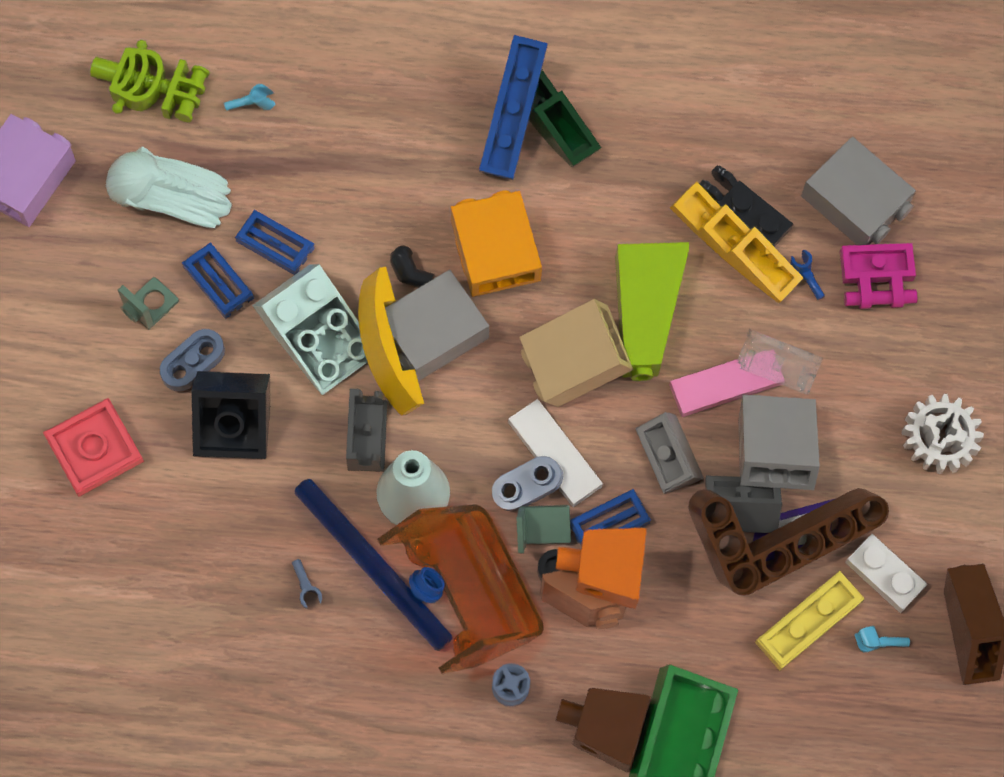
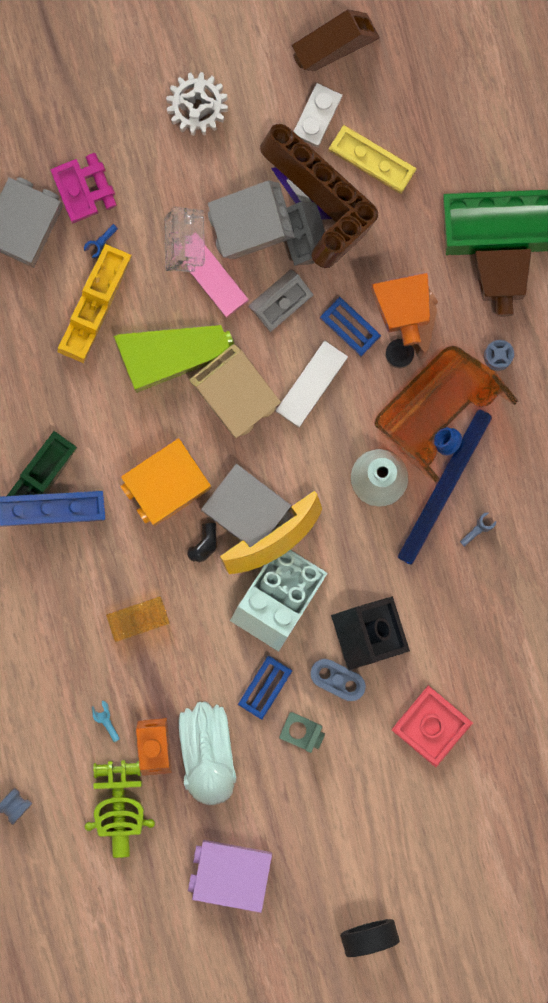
camera: 105 degrees left, 15 degrees up
(197, 133) = (153, 747): none -> orange torso
(272, 256) = (213, 680): blue tile -> none
(351, 169) = (138, 619): none -> clear yellow plate
(366, 432) = (347, 527): dark grey hinge -> none
(527, 485) = (345, 396): sand blue plate -> none
(543, 525) = (372, 372): sand green bracket -> none
(748, 206) = (62, 303): black hinge -> none
(868, 640) = (372, 113): medium azure hand -> none

